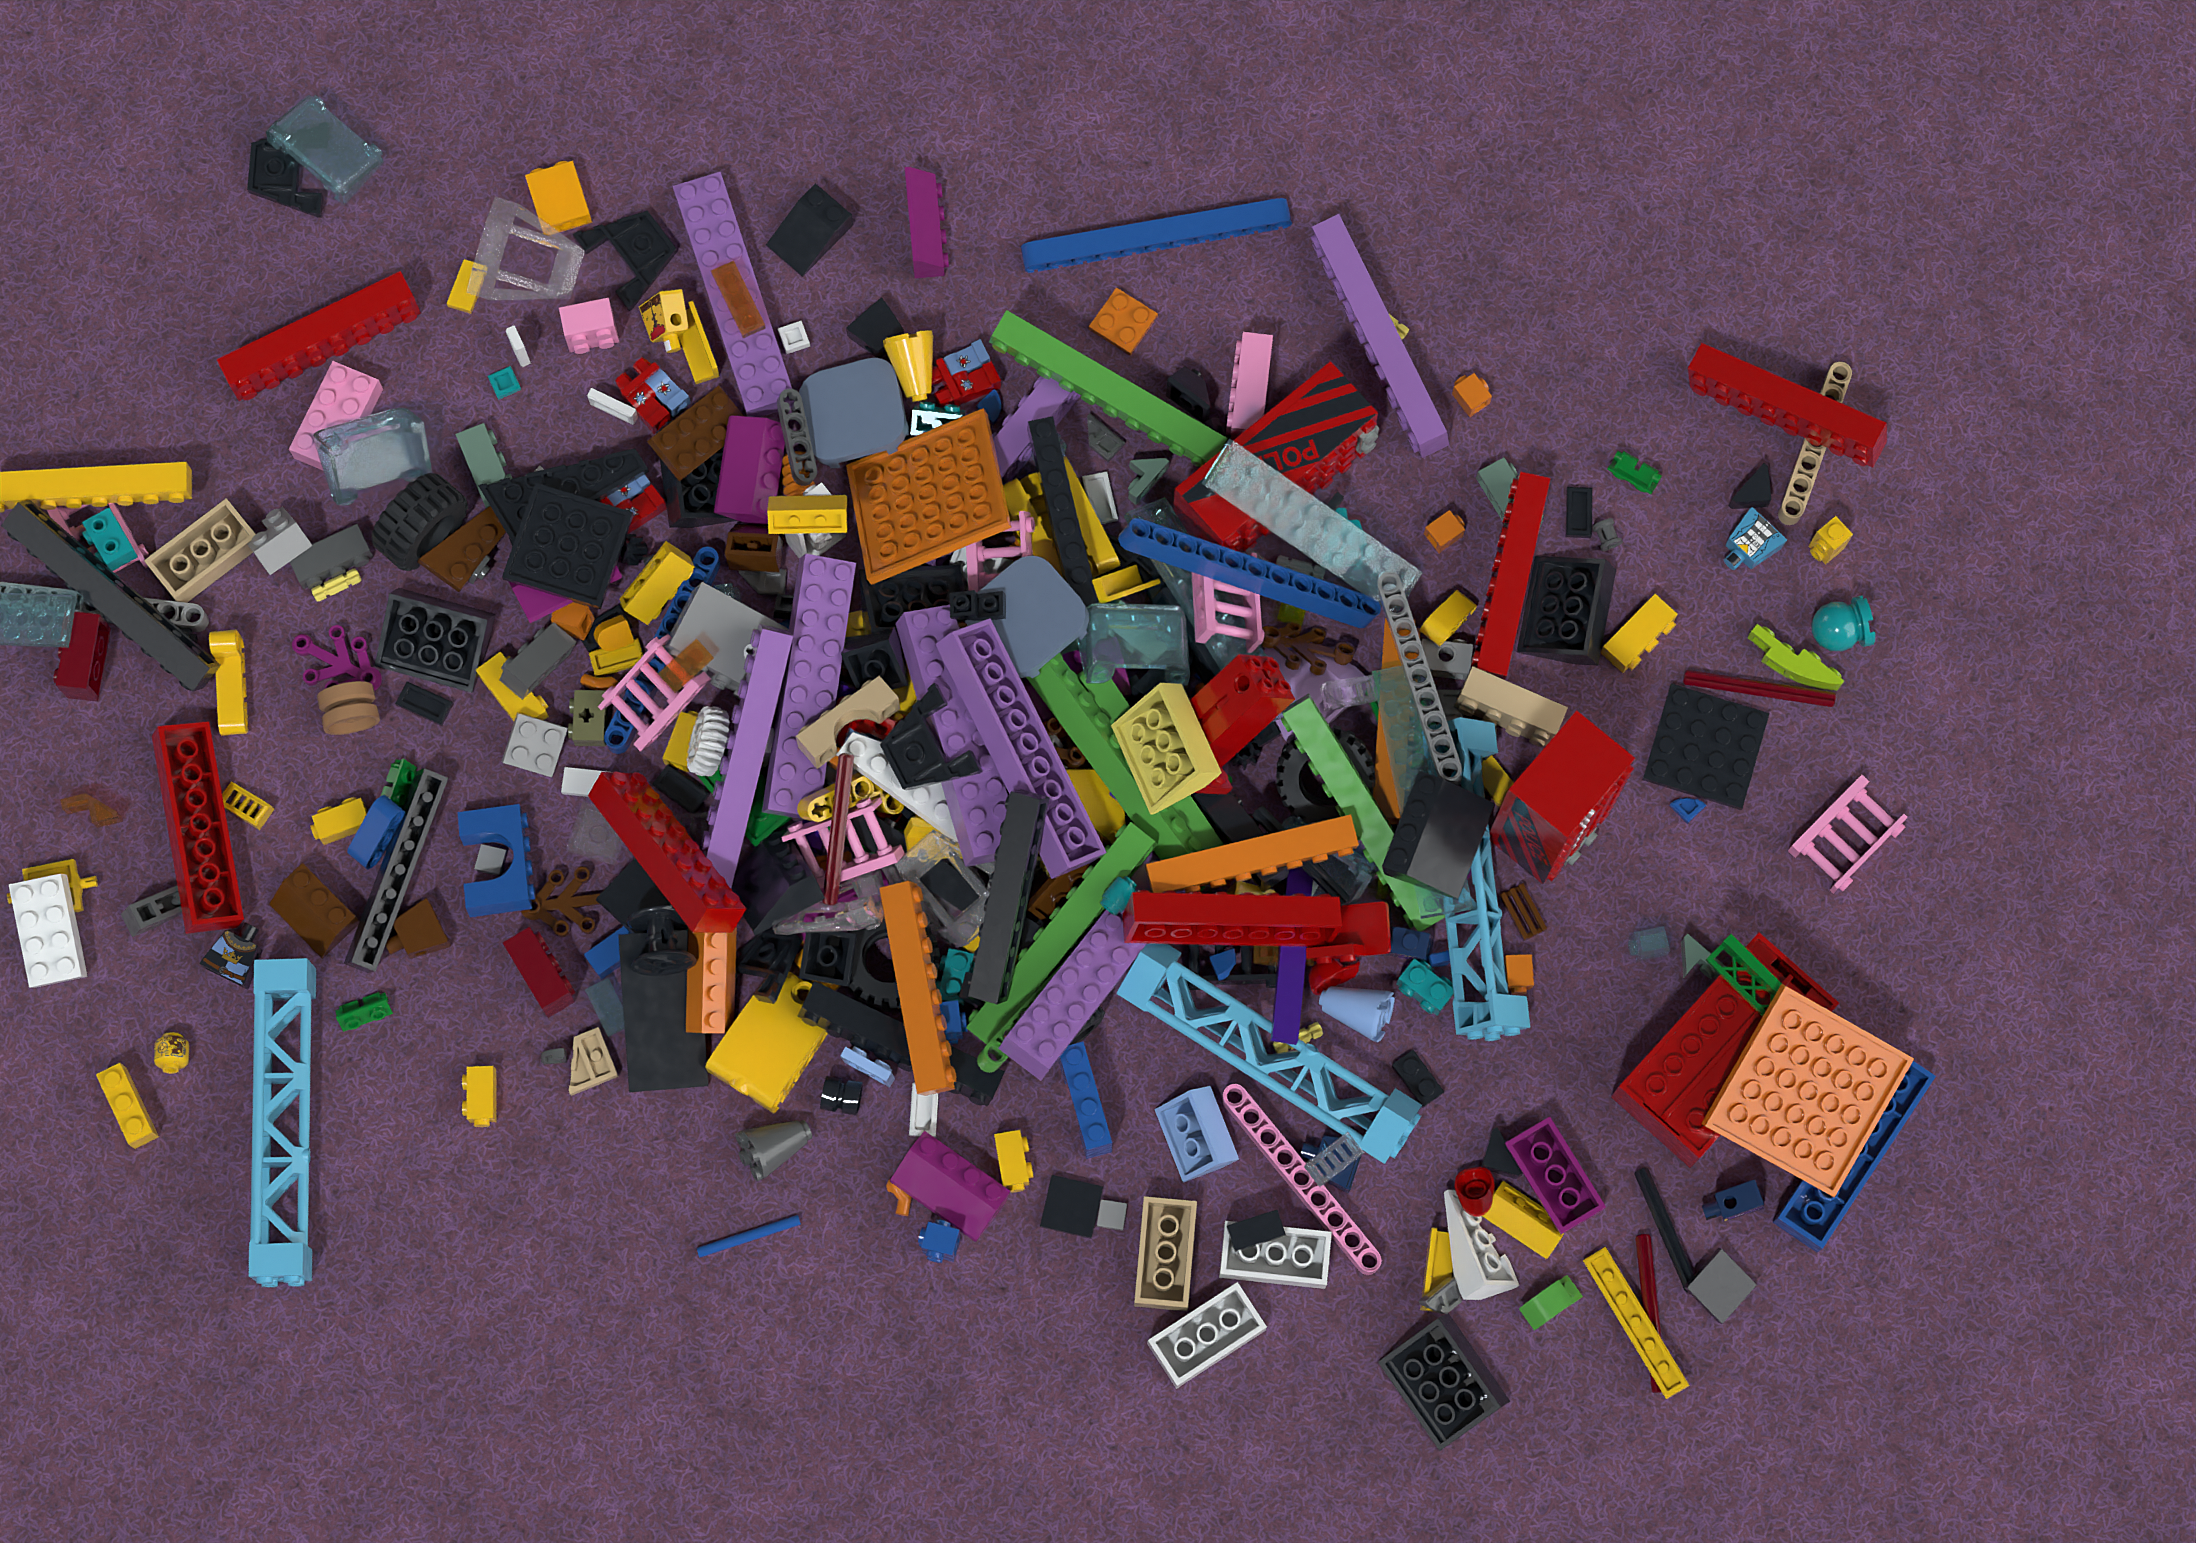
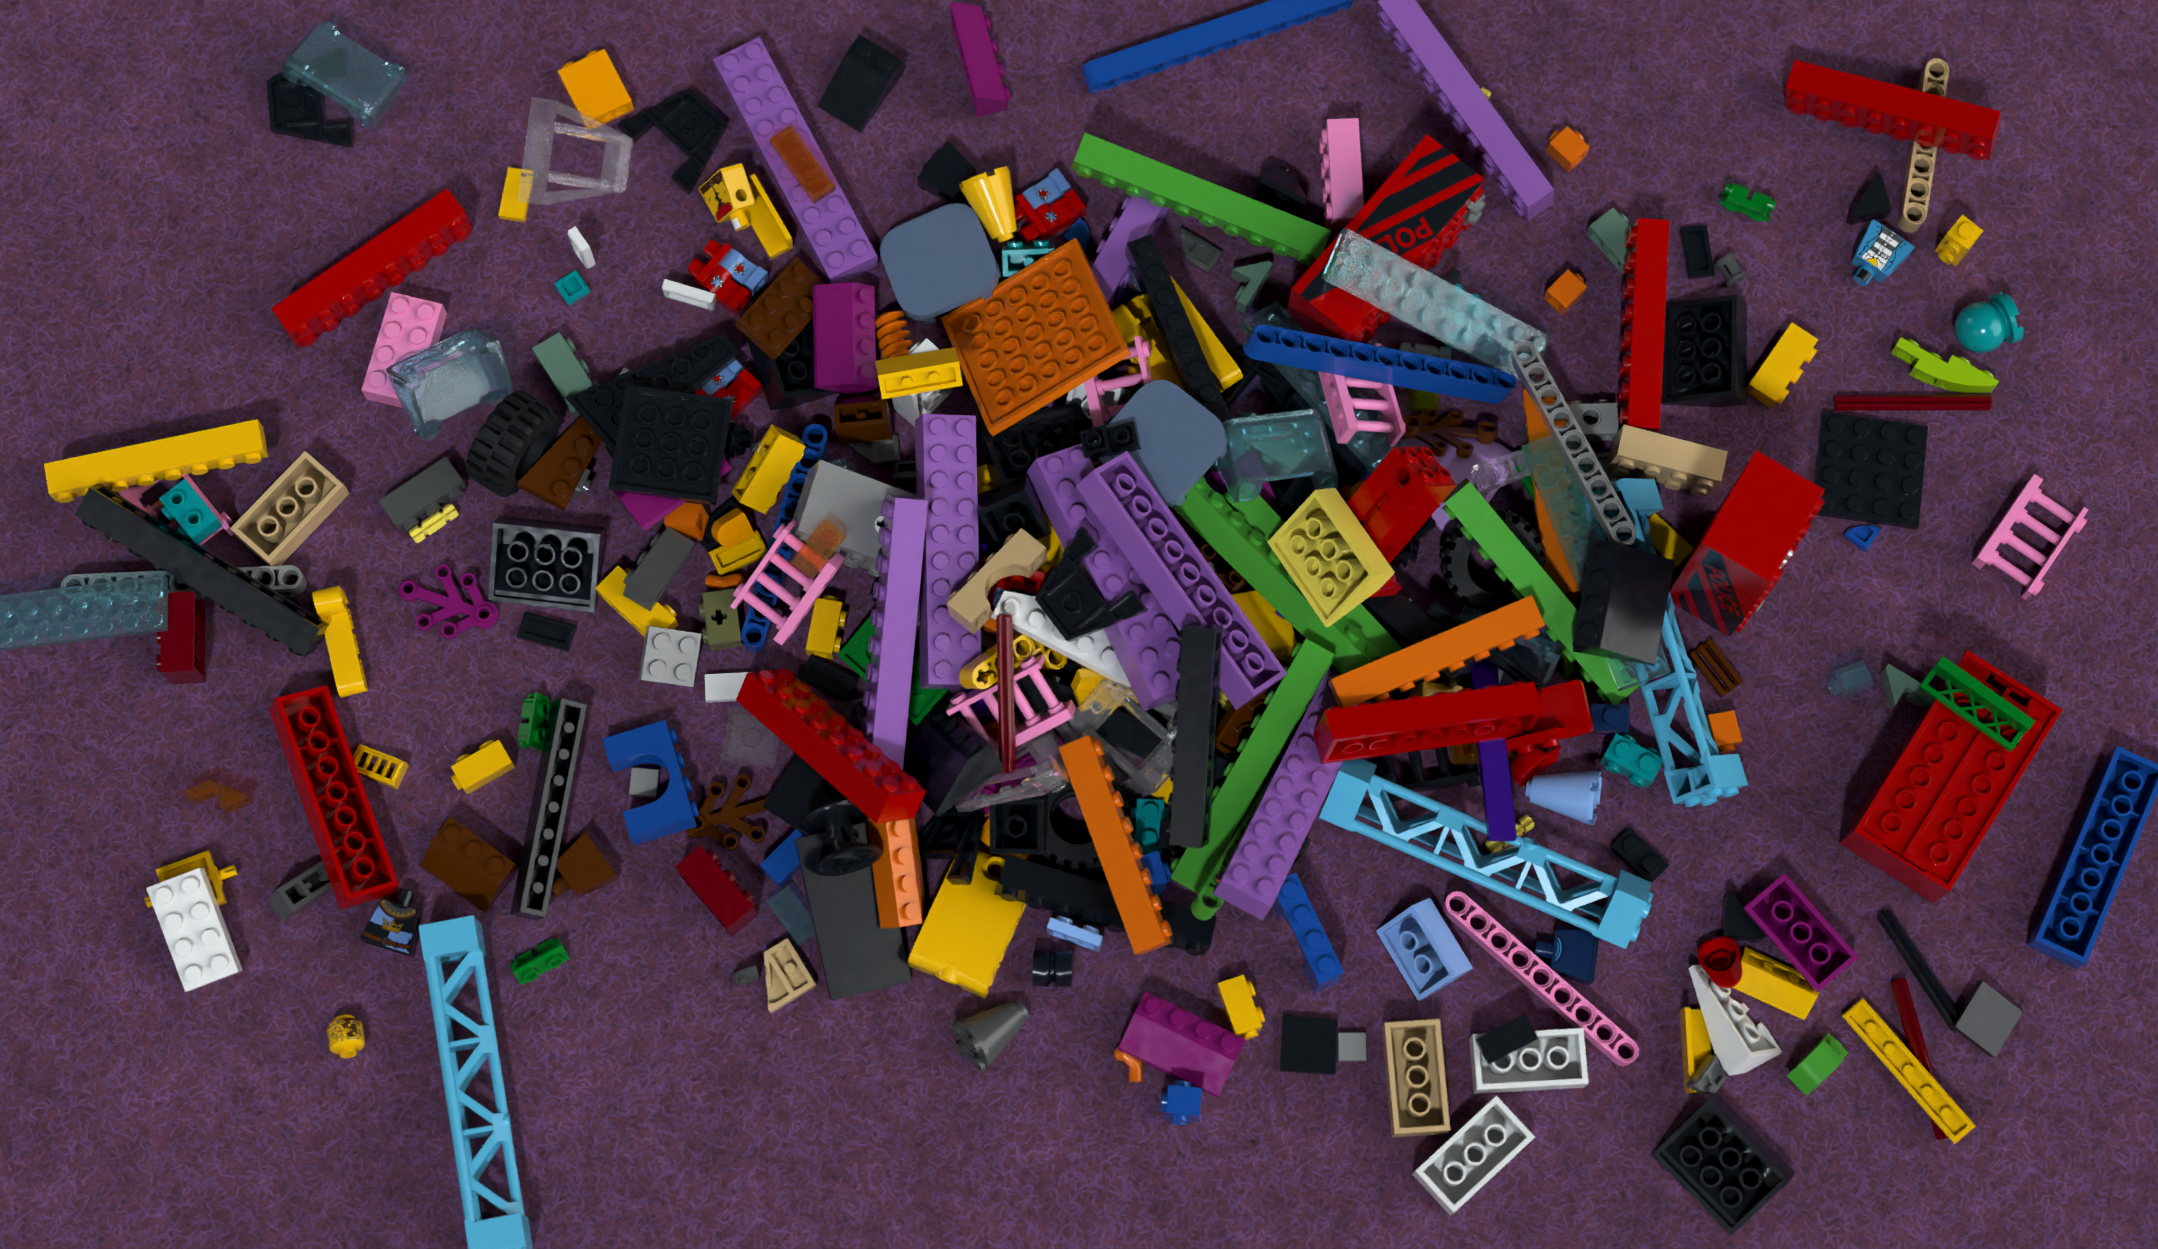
camera: 10 degrees left, 0 degrees up
(127, 1105) = (309, 1099): yellow brick -> none
(280, 542) = (369, 488): light grey brick -> none
(348, 708) = (470, 648): medium nougat wheel -> none
(376, 832) = (521, 772): blue beam -> none
(481, 1095) = (677, 1028): yellow brick -> none
(589, 325) = (651, 215): bright pink brick -> none
(708, 741) = (852, 624): white gear -> none
(748, 1236) = (980, 1129): blue bar -> none
(792, 437) = (891, 295): dark grey beam -> none
(793, 337) = (863, 195): white plate -> none
(923, 1113) = (1138, 972): white tile -> none
(1100, 496) = (1207, 306): white tile -> none
(1118, 895) = (1307, 715): teal brick -> none
(1120, 584) = (1249, 396): yellow panel -> none
(1123, 321) = (1198, 128): orange plate -> none
(1223, 963) = (1421, 769): blue tile -> none
(1316, 1174) = (1564, 975): clear slope -> none
(1439, 959) = (1641, 729): blue tile -> none
(1448, 618) = (1586, 379): yellow beam -> none
(1747, 1199) = (1997, 924): dark blue torso -> none
(1807, 1090) = (2048, 804): orange plate -> none

